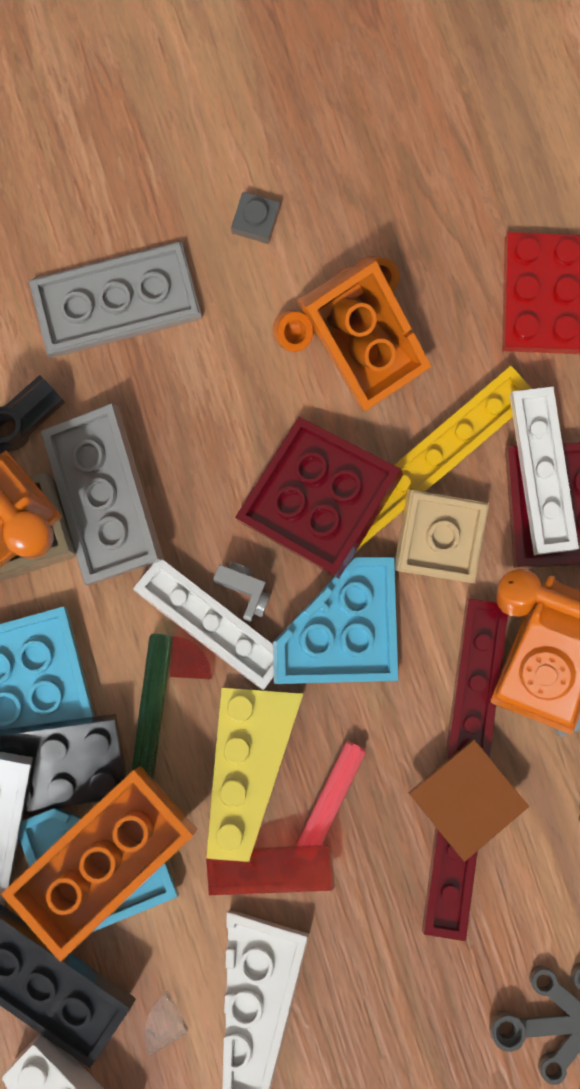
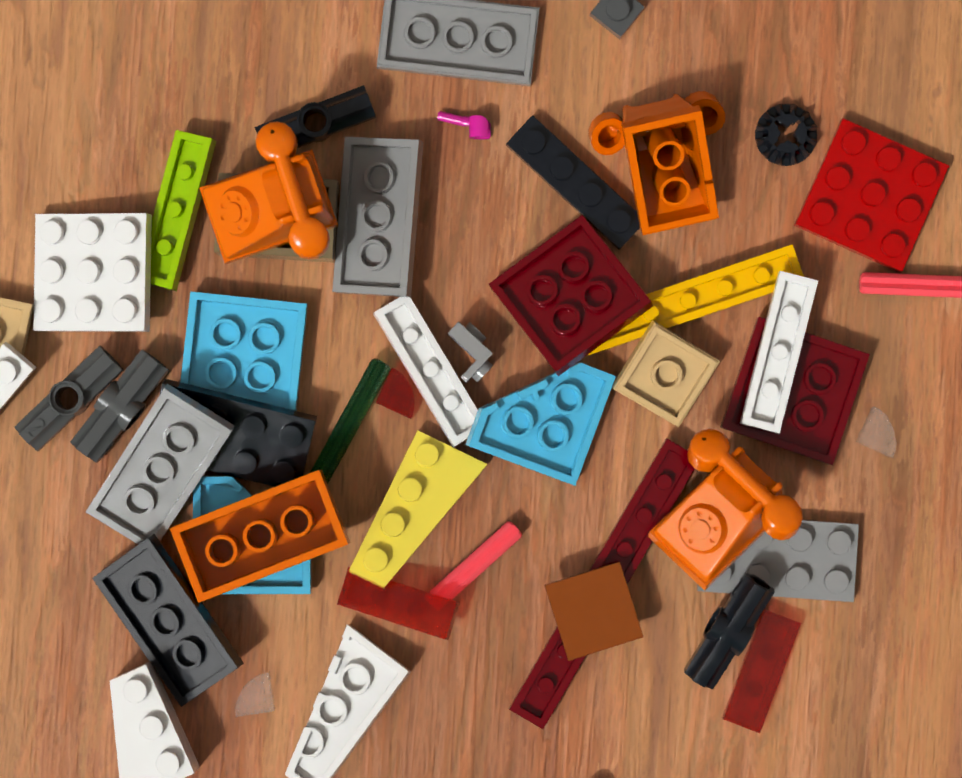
camera: 15 degrees right, 5 degrees up
(165, 371) = (478, 125): none -> dark pink hand
(279, 389) = (575, 182): none -> black plate
(469, 284) = (787, 152): none -> black gear

